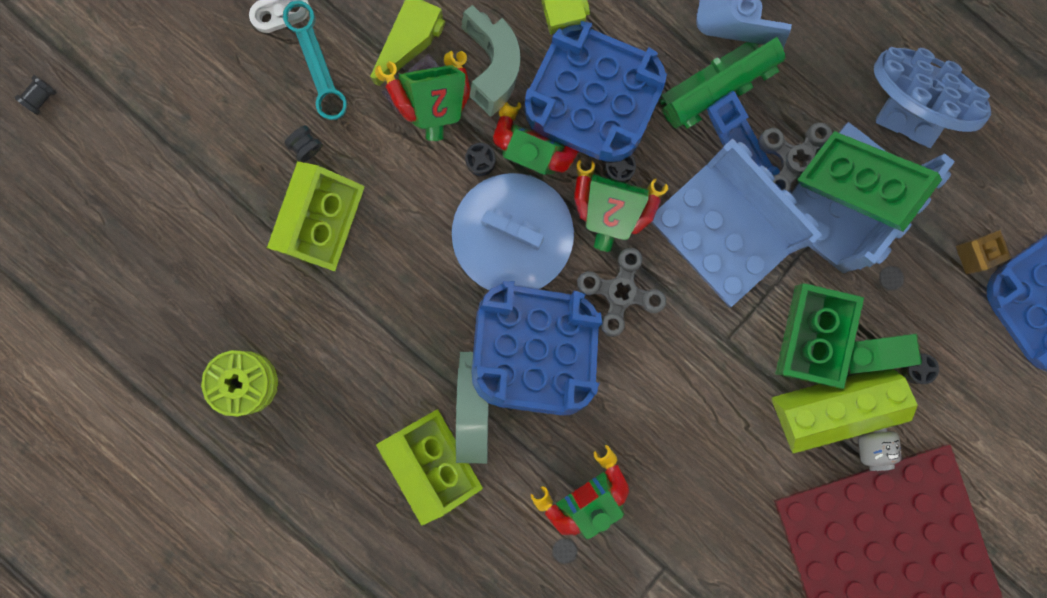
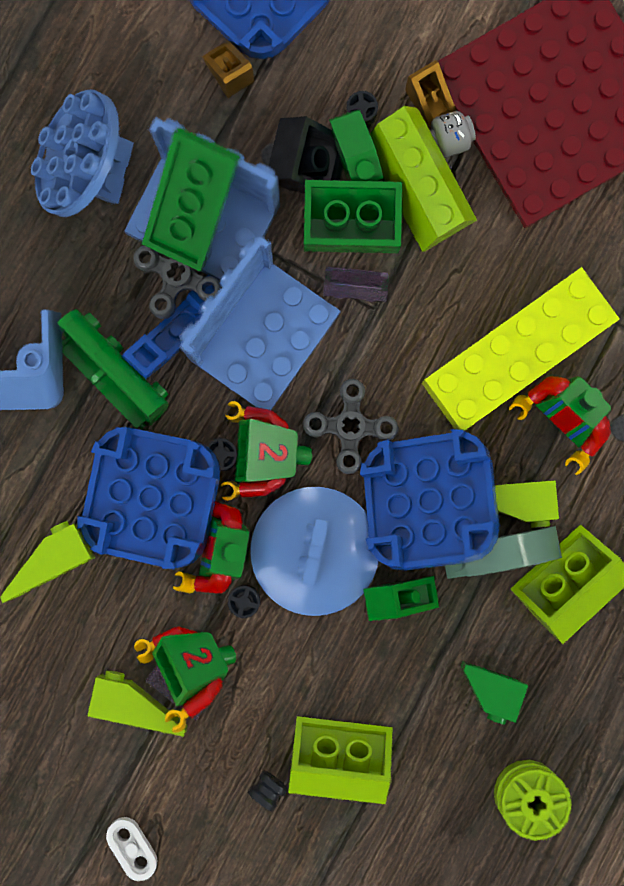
camera: 100 degrees left, 0 degrees up
(314, 59) = (177, 798): teal piece -> none
(345, 372) = (495, 692): none -> green slope
(451, 304) = (401, 598): none -> green slope
(498, 81) = (161, 600): sand green arch -> none
(515, 442) = (529, 502): none -> lime slope
(659, 468) = (520, 350): none -> neon yellow brick
(754, 326) = (356, 284): none -> clear purple plate
(889, 303) = (304, 152): none -> black slope
(924, 436) = (430, 92): none -> pearl gold slope

